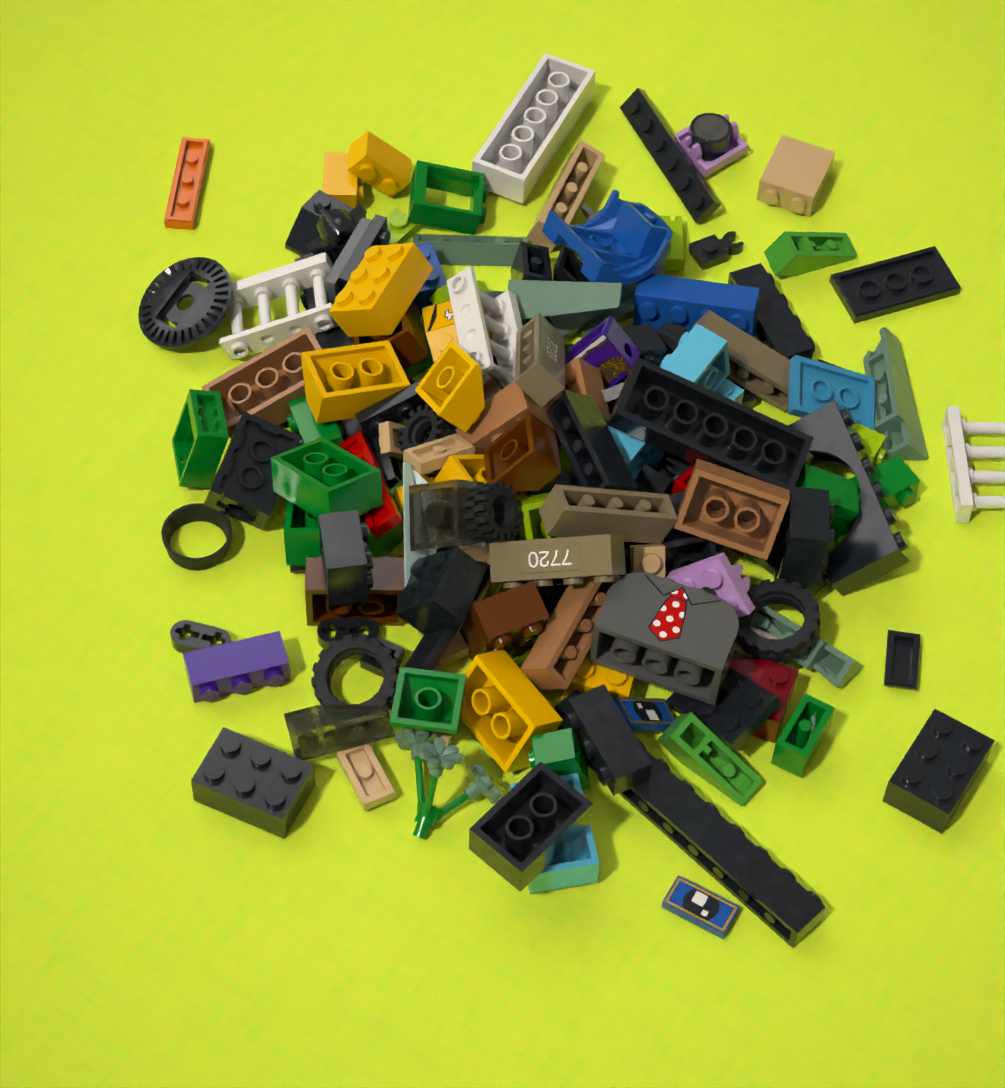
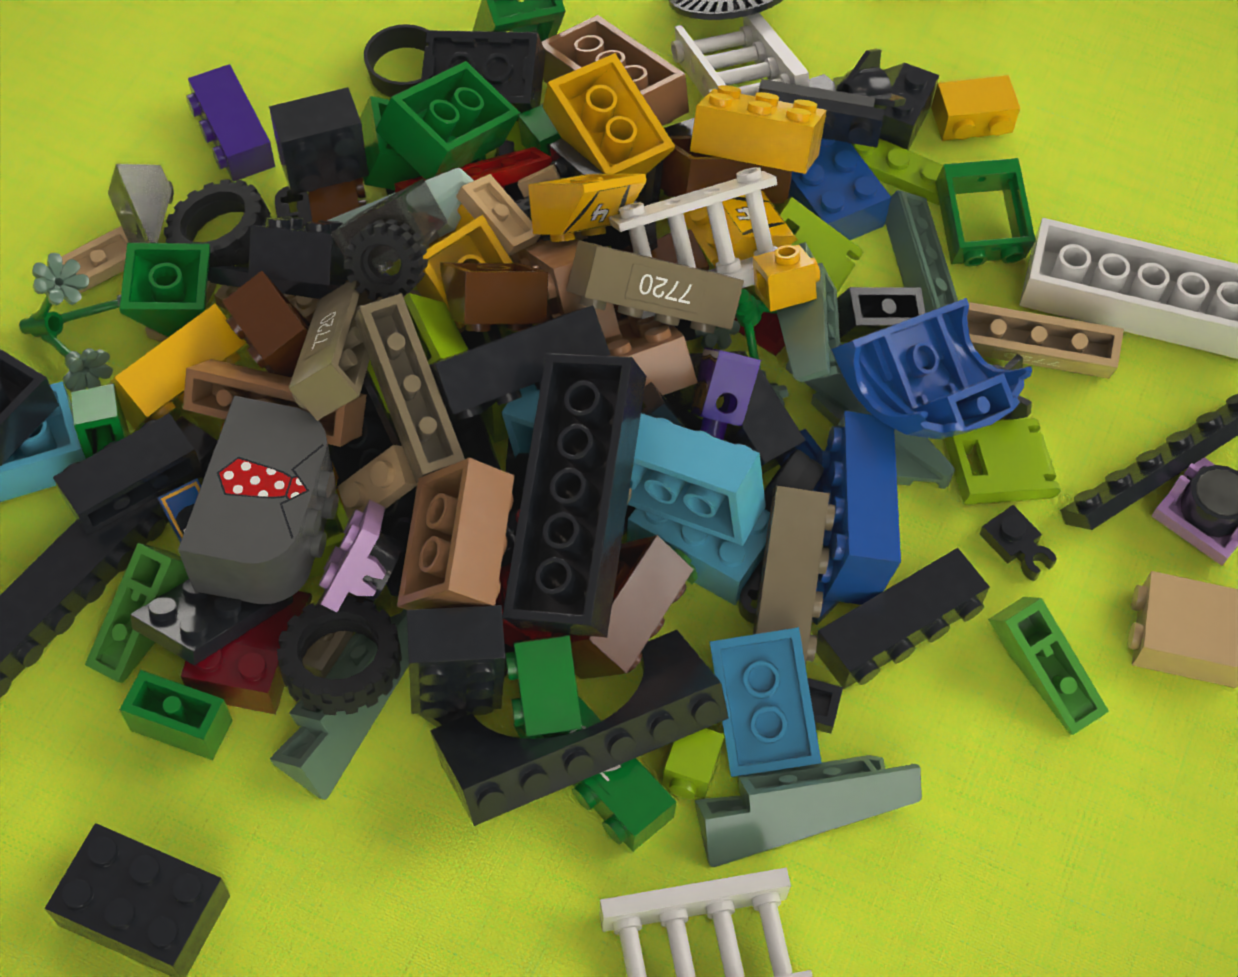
camera: 80 degrees right, 5 degrees up
(201, 636) = (262, 90): black beam -> none
(253, 782) = (74, 158): black brick -> none
(379, 164) = (1007, 127): yellow brick -> none
(529, 295) = (785, 277): none -> yellow brick
(894, 284) = (1034, 794): black tile -> none
(902, 660) = (333, 846): black tile -> none

